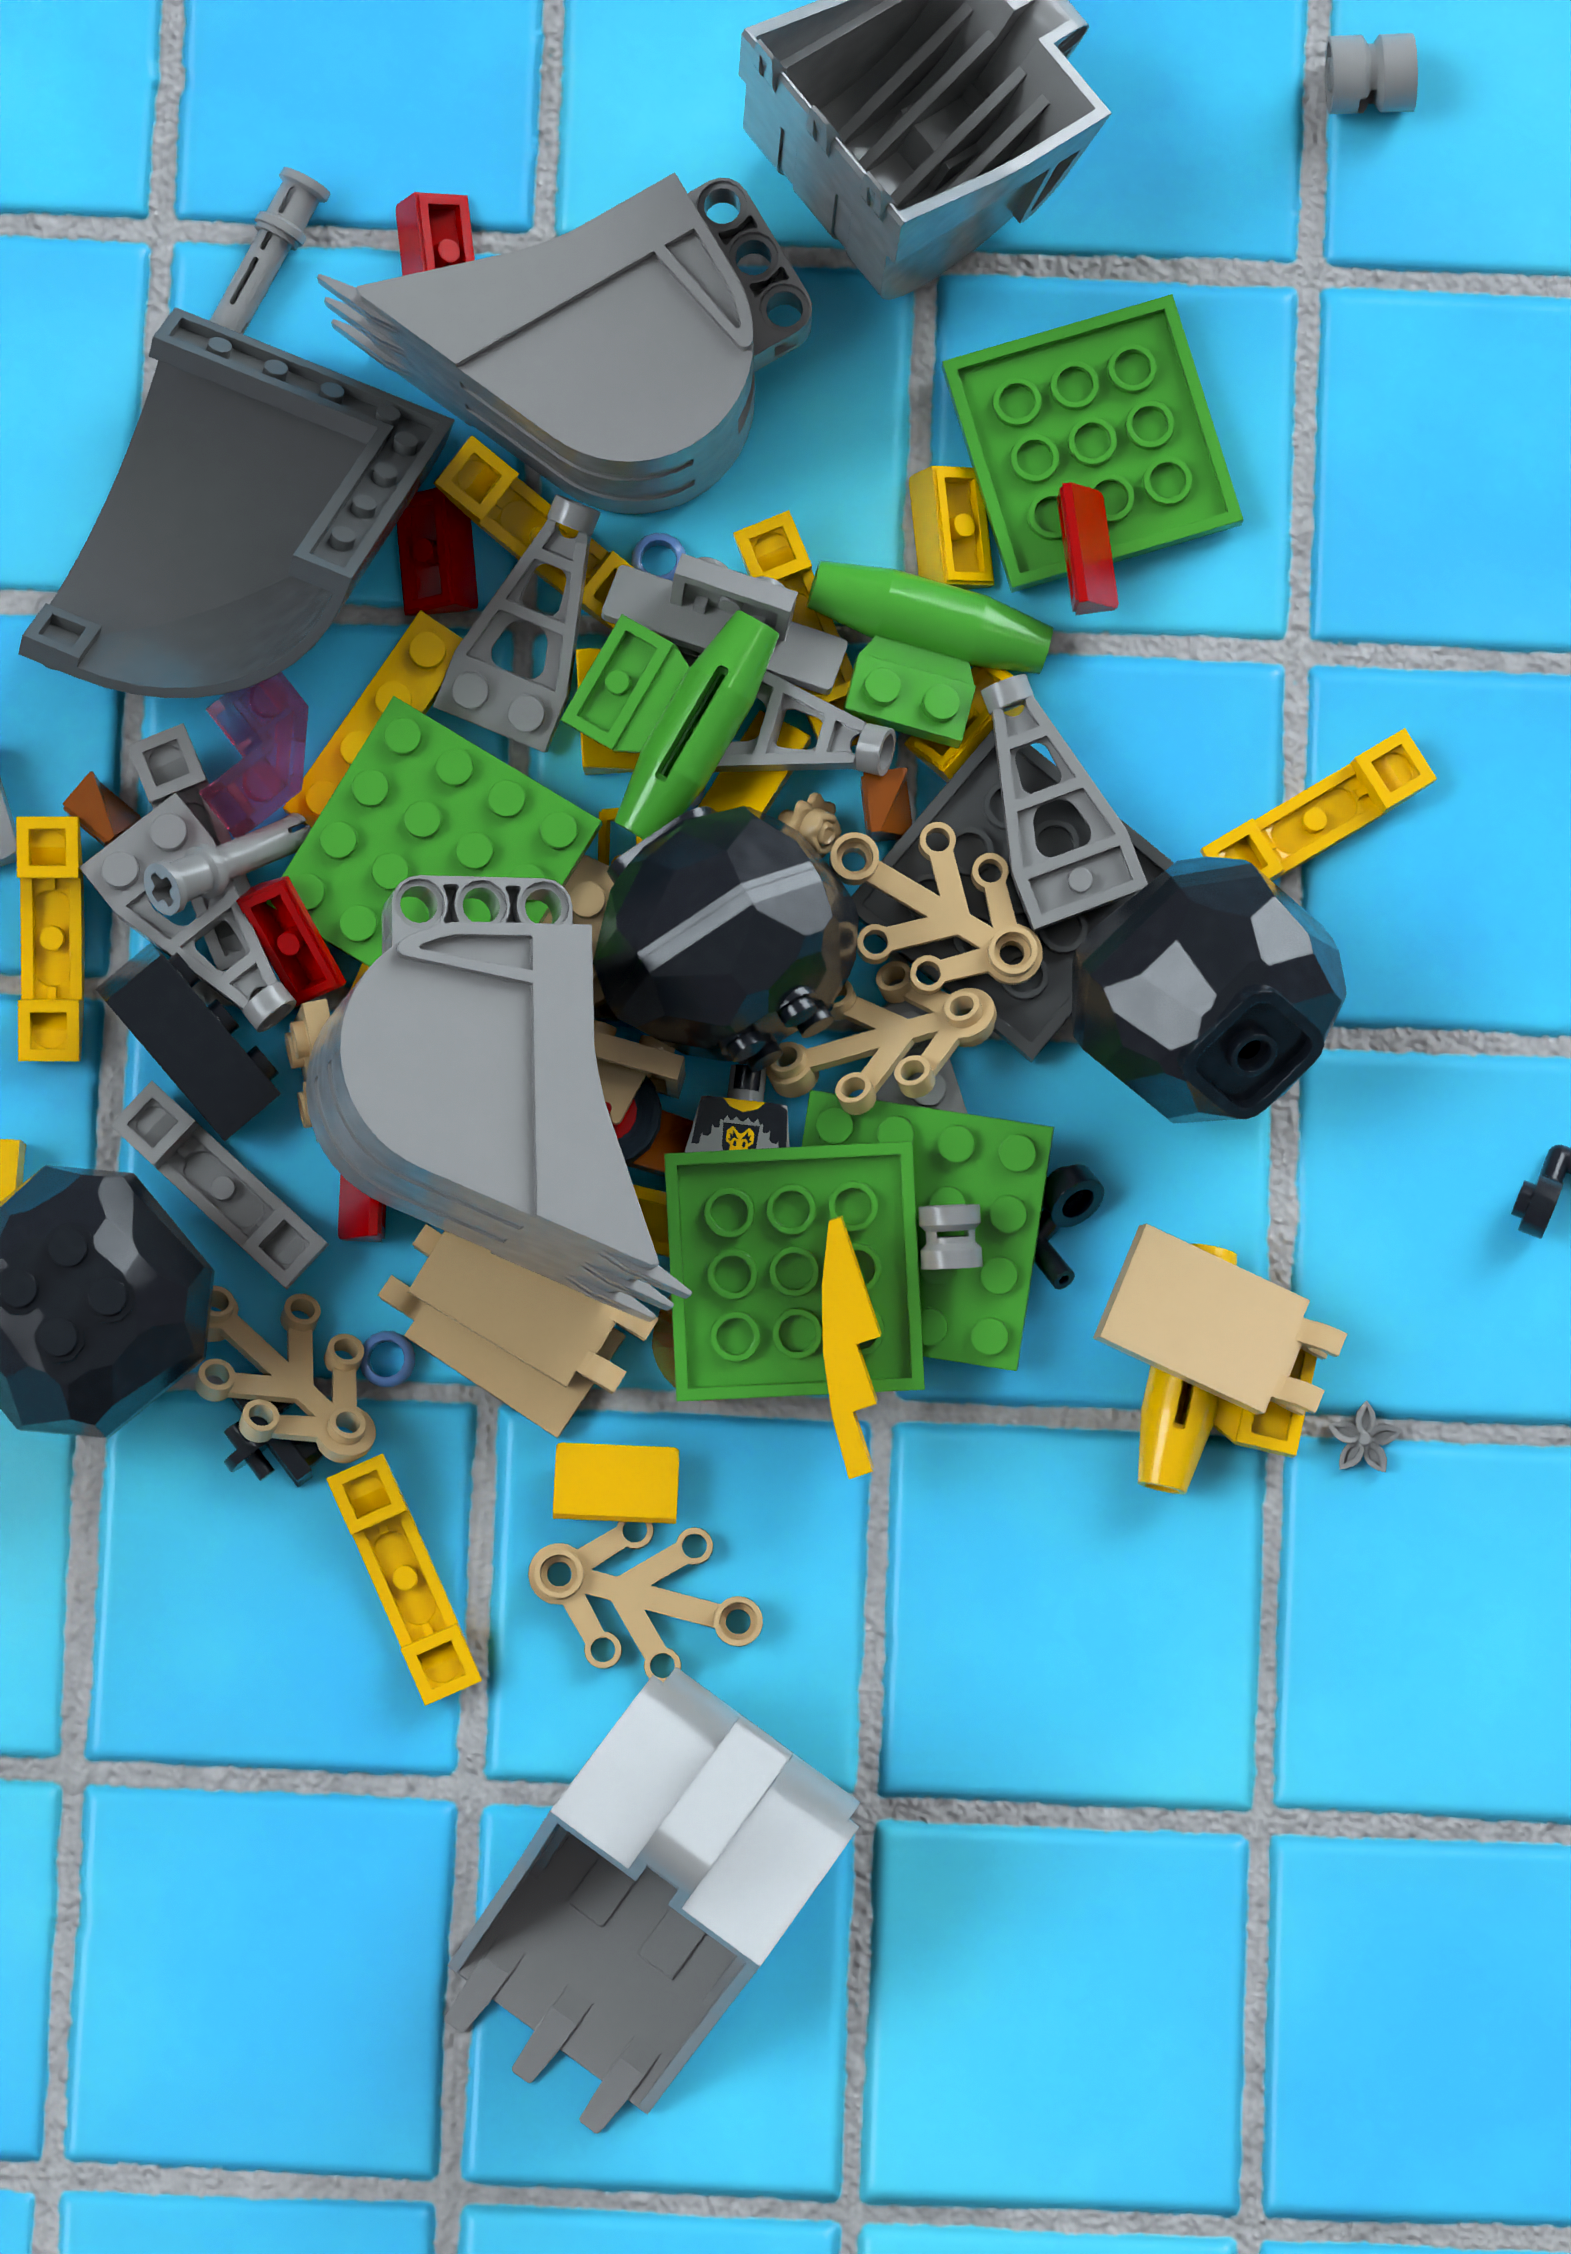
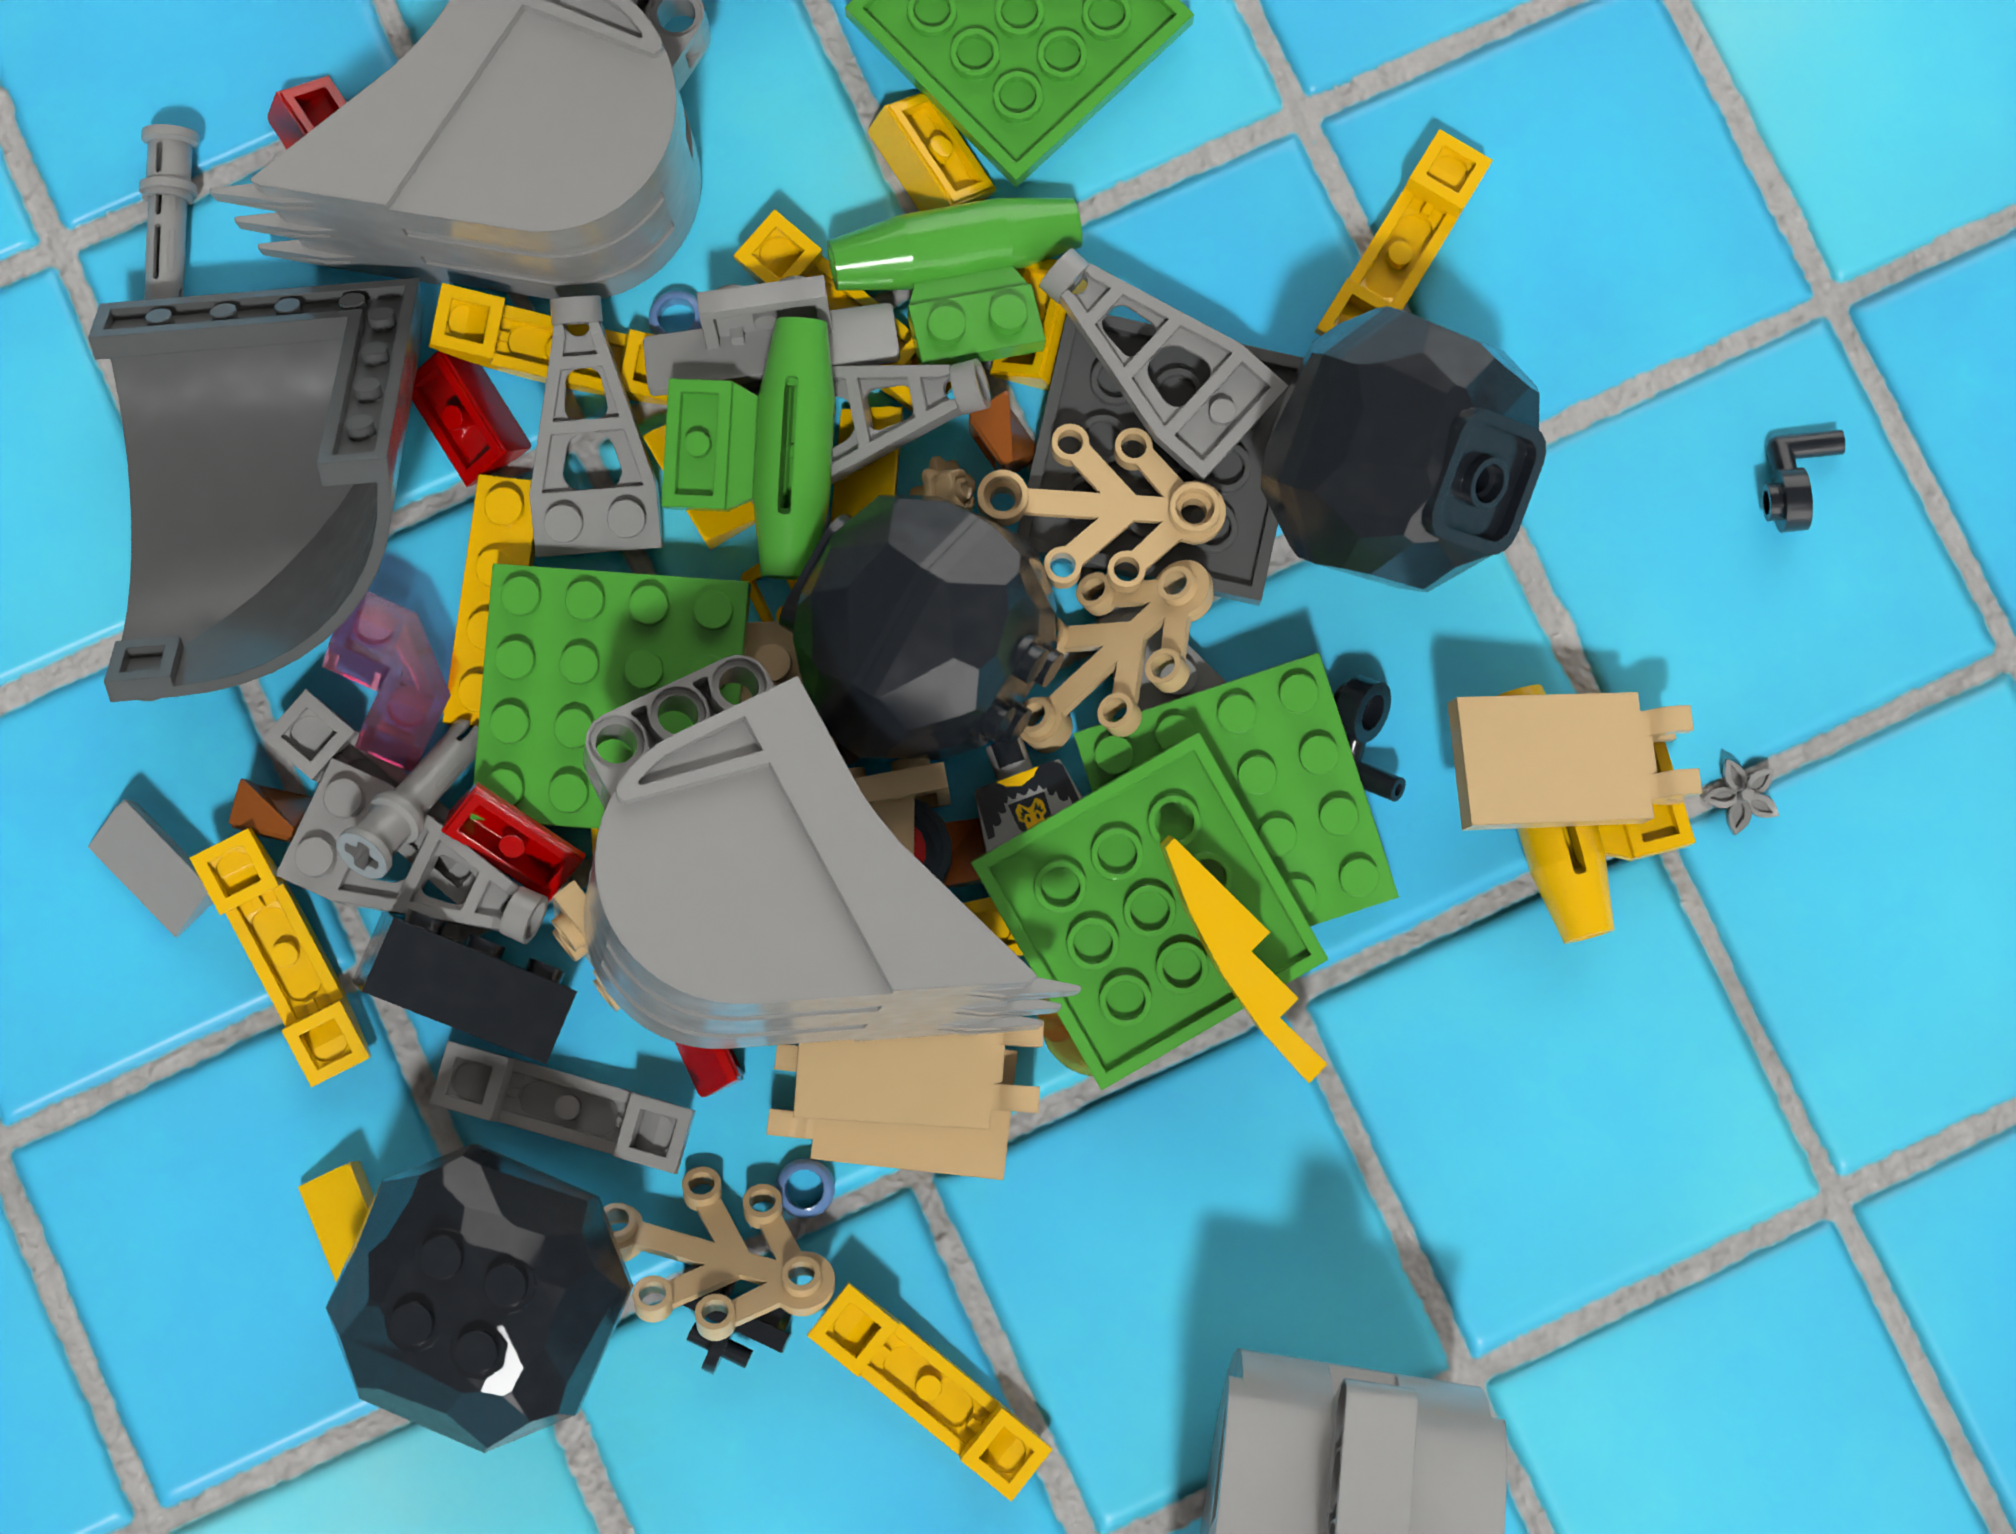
camera: 30 degrees left, 0 degrees up
(616, 1483) = (1081, 1195): yellow slope -> none
(633, 1594) = (1150, 1289): tan plant -> none
(950, 1251) = (1286, 816): light grey wheel -> none
(1087, 549) = (1066, 110): red slope -> none

